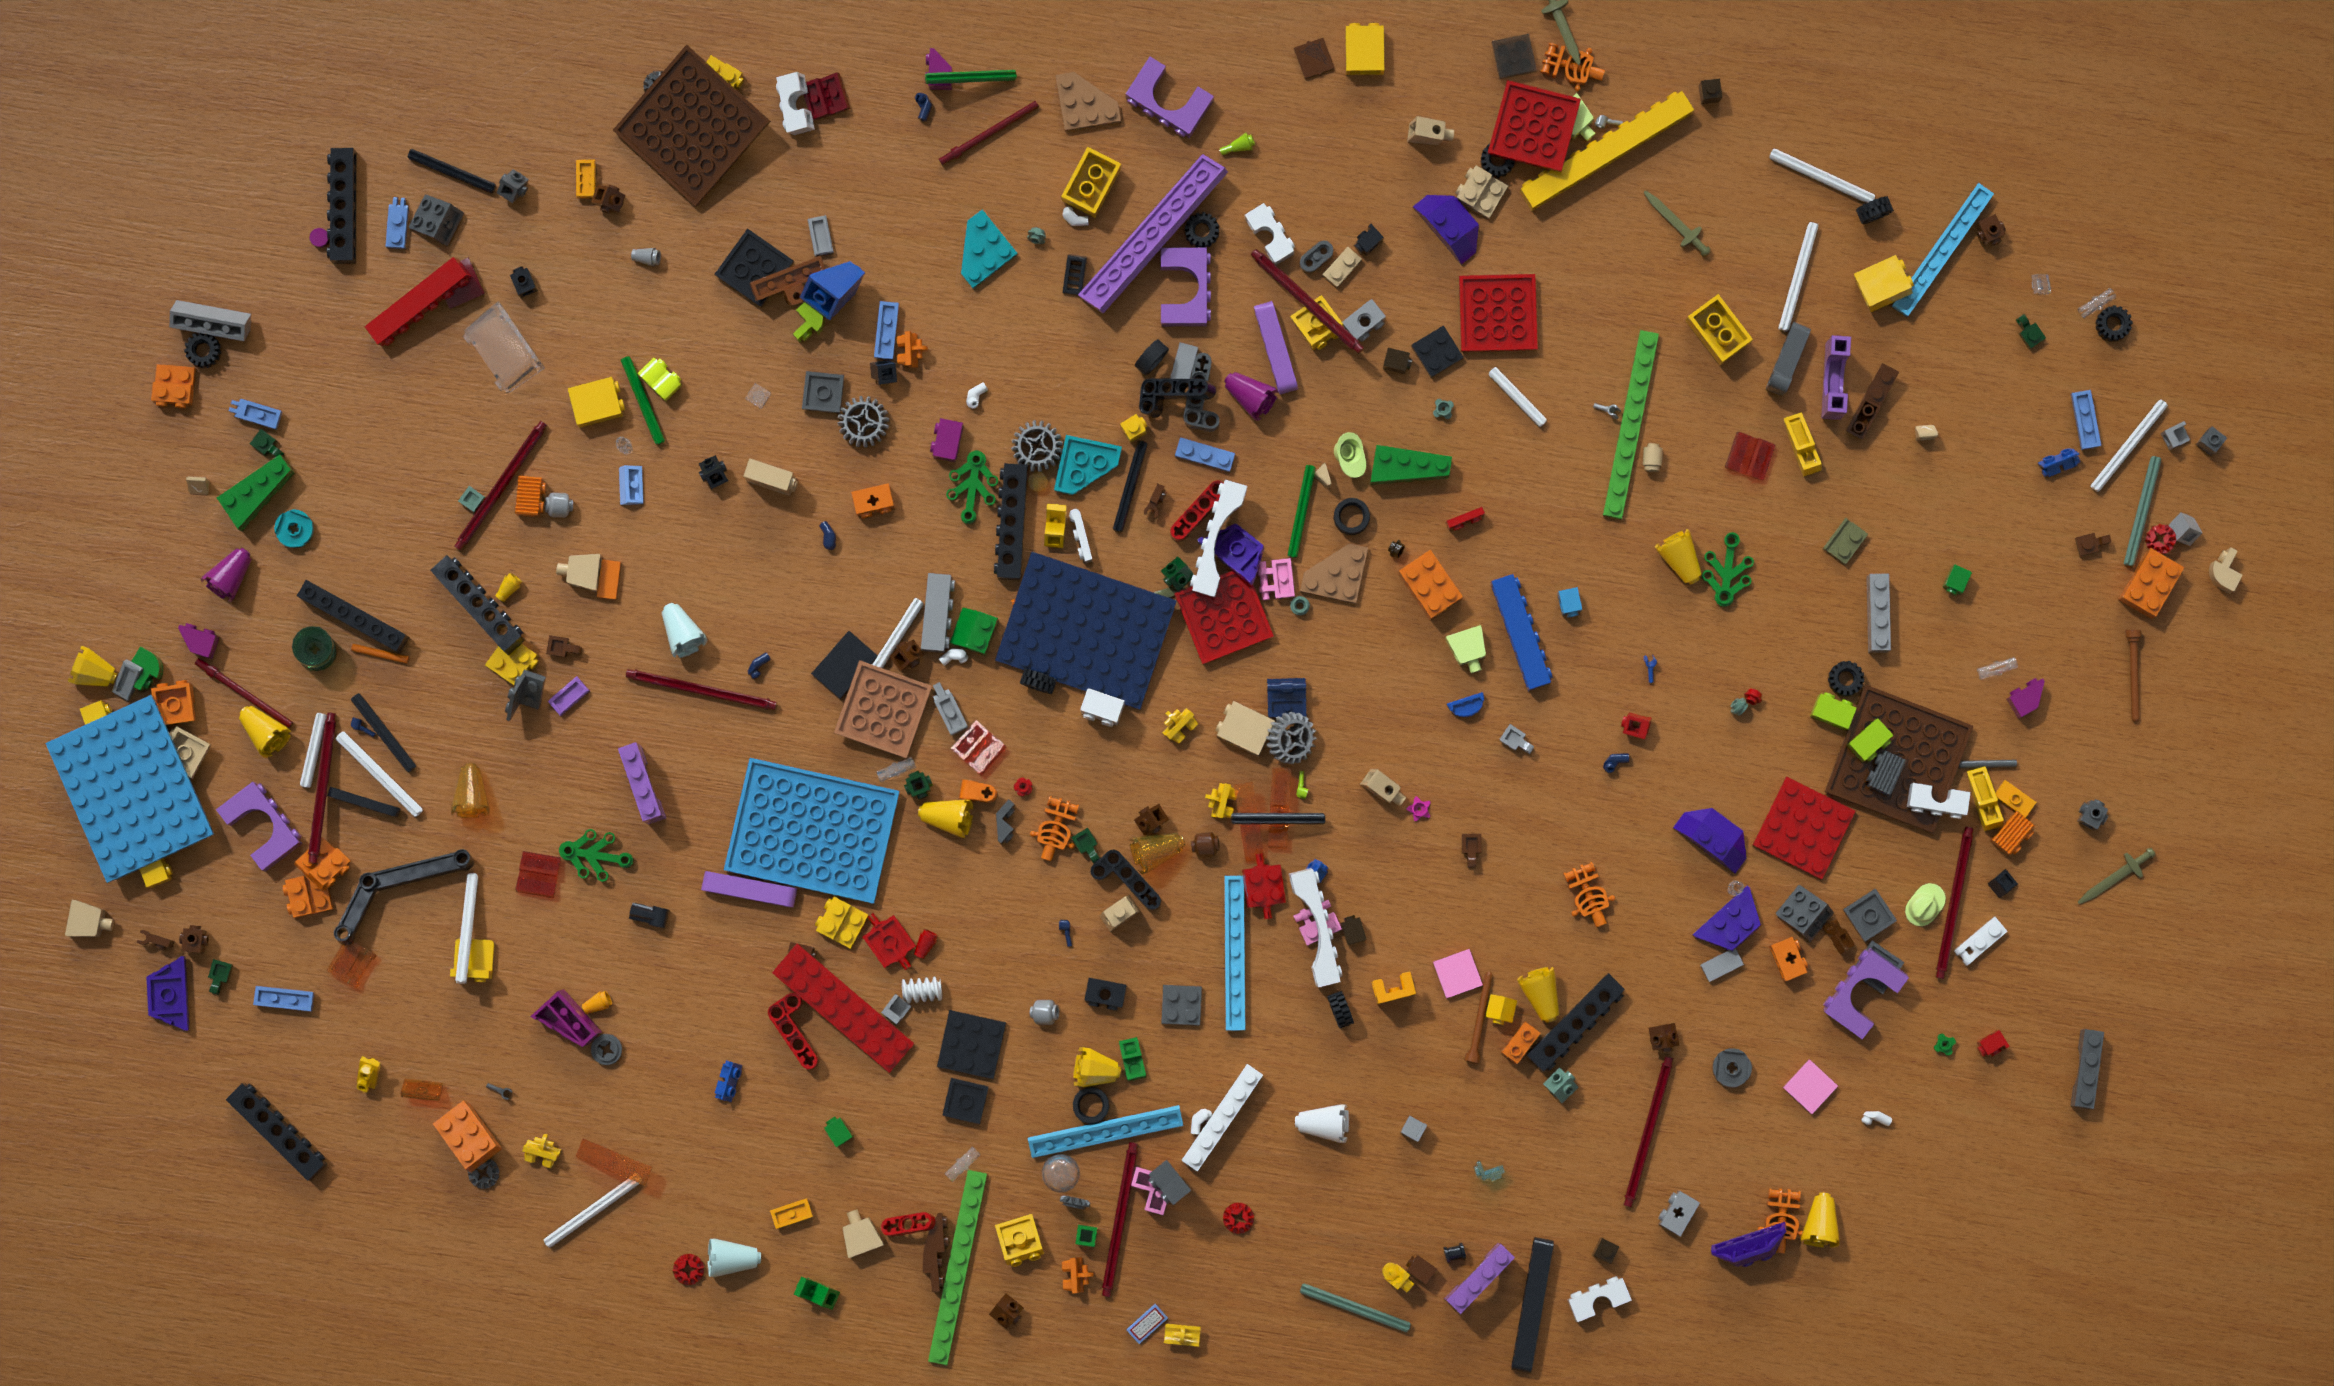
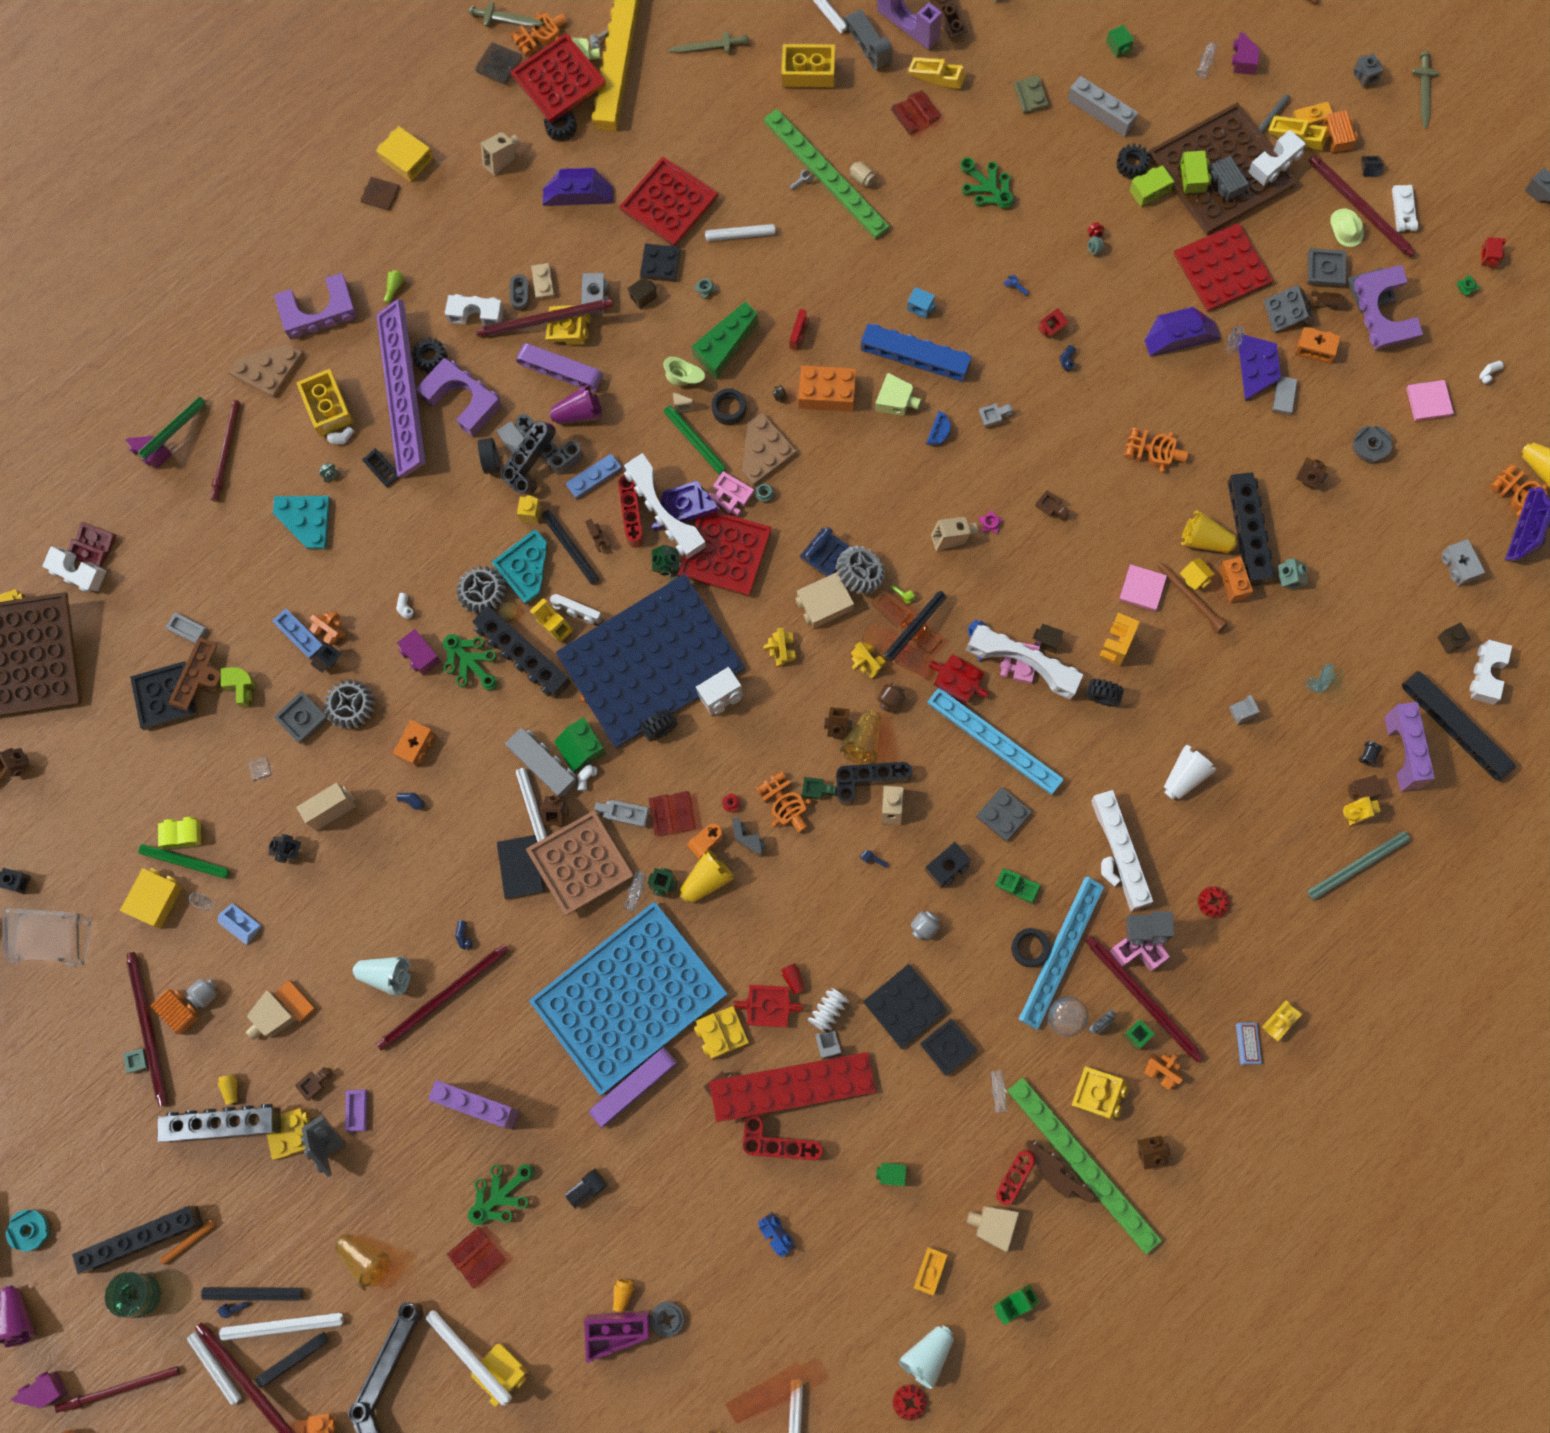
camera: 45 degrees left, 10 degrees down
(264, 731) = (161, 1399): yellow cone -> none
(647, 256) = (81, 769): light grey cone -> none
(832, 288) = (227, 644): blue slope -> none
(925, 105) = (163, 479): dark blue arm -> none
(1094, 1068) = (1002, 921): yellow cone -> none
(1368, 240) = (539, 247): black brick -> none
(1481, 191) = (572, 151): tan plate -> none
(1648, 1131) = (1376, 537): dark red piece -> none
(1681, 556) = (951, 203): yellow cone -> none

